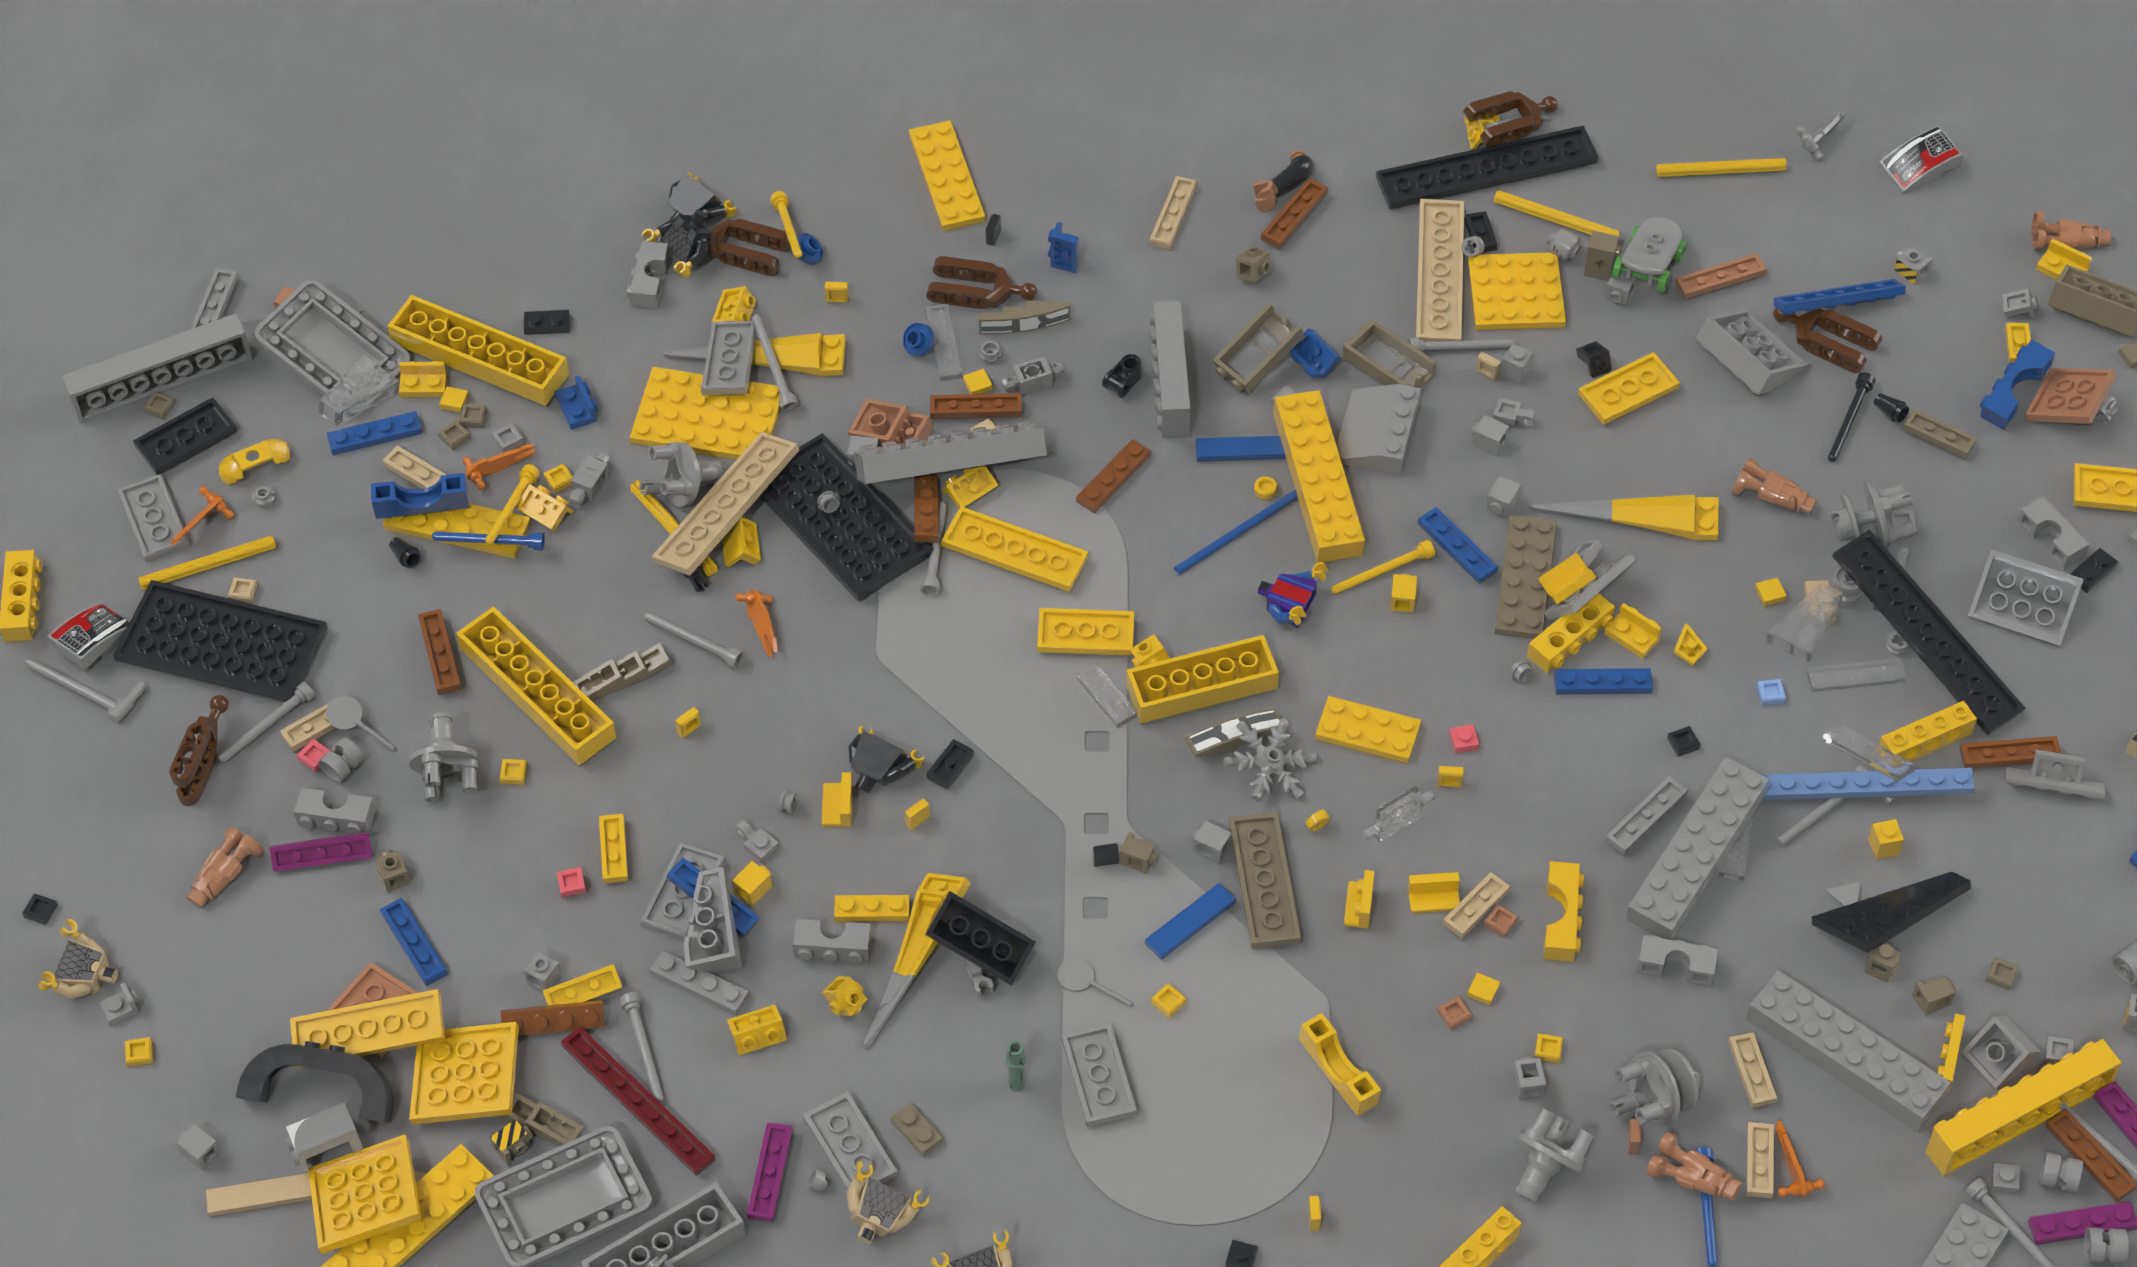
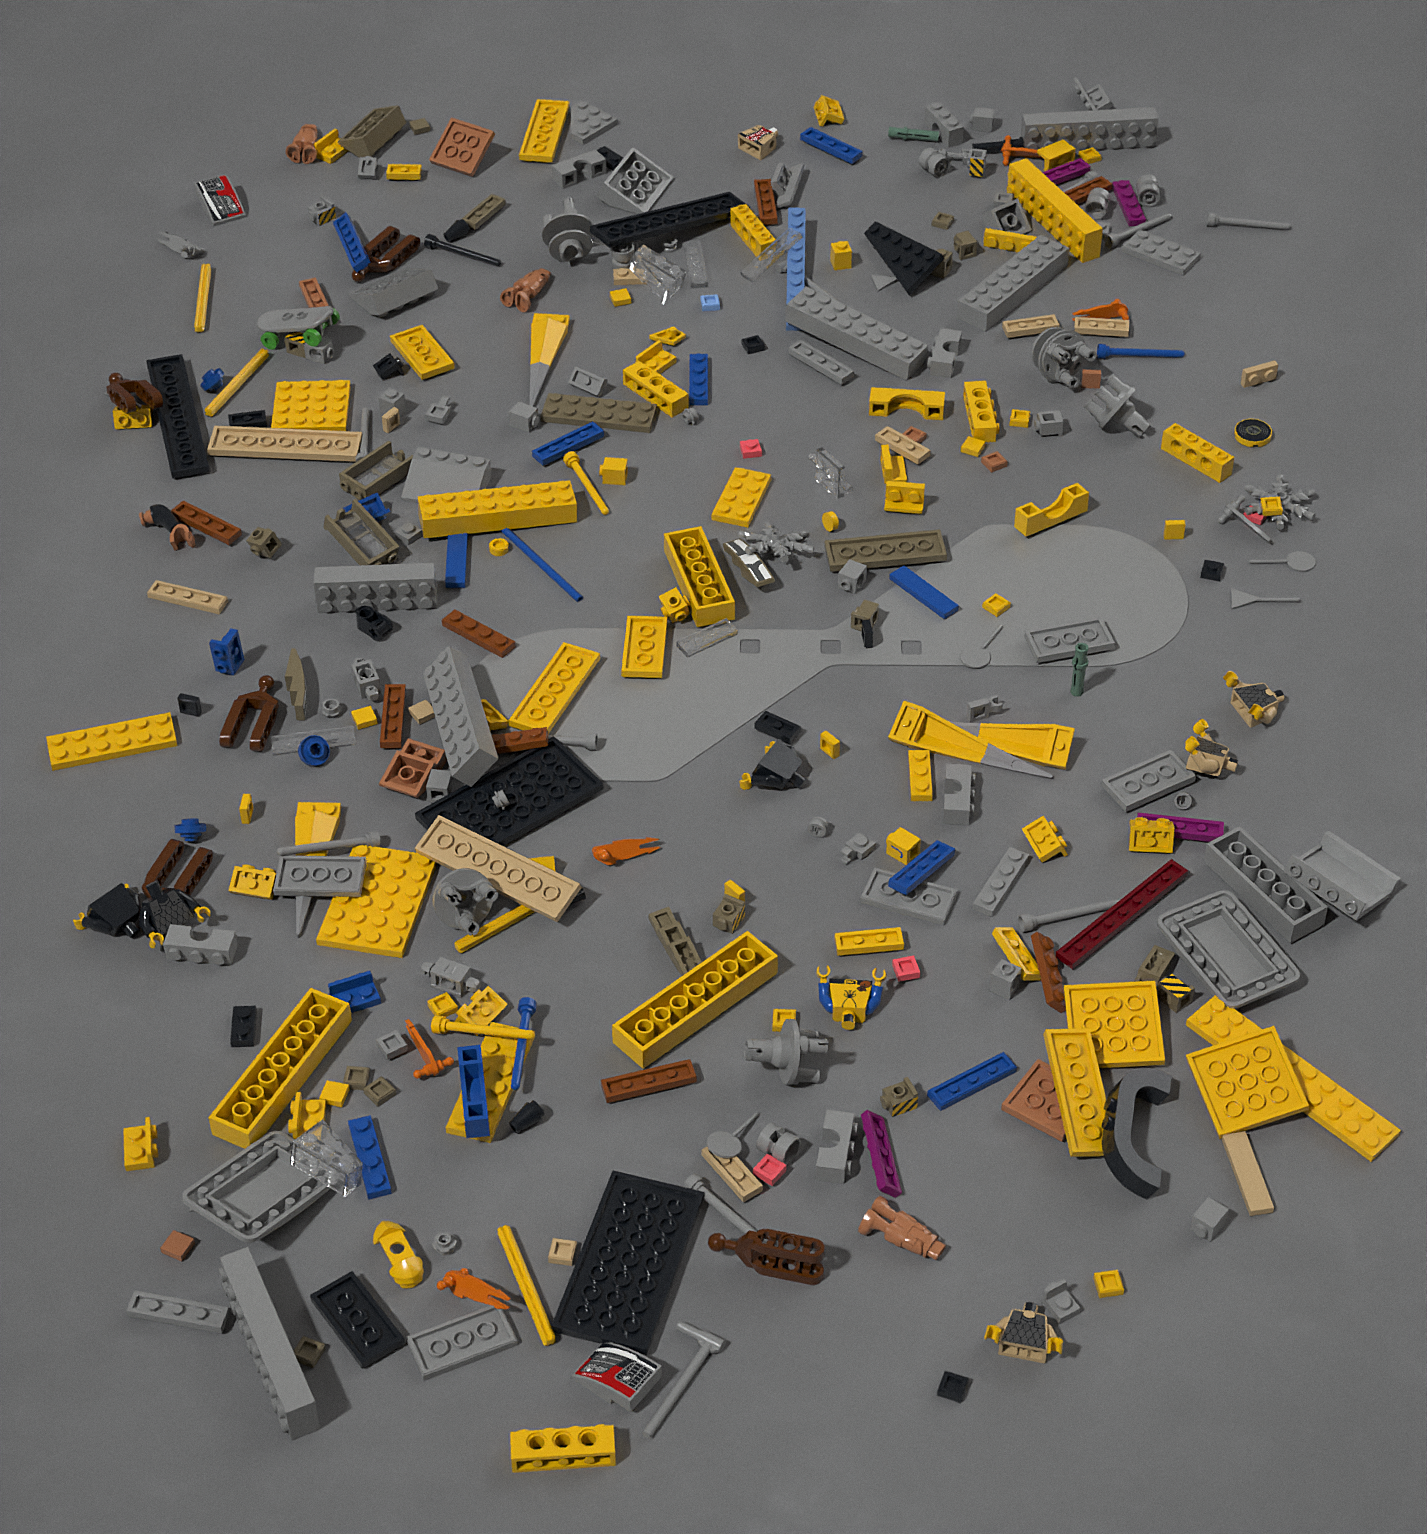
camera: 90 degrees left, 10 degrees down
(321, 1133) = (1193, 1118): light grey panel -> none
(406, 259) = (140, 1146): none -> yellow bracket
(412, 468) = (425, 1114): tan plate -> none
(528, 823) = (850, 999): none -> torso
(659, 717) = (729, 914): none -> dark tan brick
(712, 933) = (961, 858): light grey wedge -> none
(732, 657) = (661, 869): light grey piece -> none
(755, 1136) = (1151, 835): none -> yellow bracket
(780, 202) = (124, 851): yellow piece -> none
(837, 802) = (815, 795): yellow panel -> none
(845, 996) = (1014, 781): yellow brick -> none
(914, 1021) = (1030, 742): none -> yellow plate
(916, 1130) = (1127, 745): dark tan plate -> none
(979, 937) = (959, 692): black slope -> none
(1292, 594) = (617, 529): torso -> none
(1450, 776) = (789, 452): yellow tile -> none
(1476, 251) = (264, 423): light grey bush -> none
(1489, 434) = (461, 421): light grey brick -> none
(1550, 190) = (212, 379): none -> blue plate
(1560, 987) = (980, 411): none -> yellow brick
(1564, 245) = (271, 376): light grey head -> none
(1566, 578) = (615, 381): yellow panel -> none
(1601, 255) = (292, 351): dark tan brick -> none
(1605, 573) = (621, 370): light grey tile -> none
(1696, 1173) = (1120, 348): nougat piece -> none
(2031, 363) = (460, 180): blue arch -> none

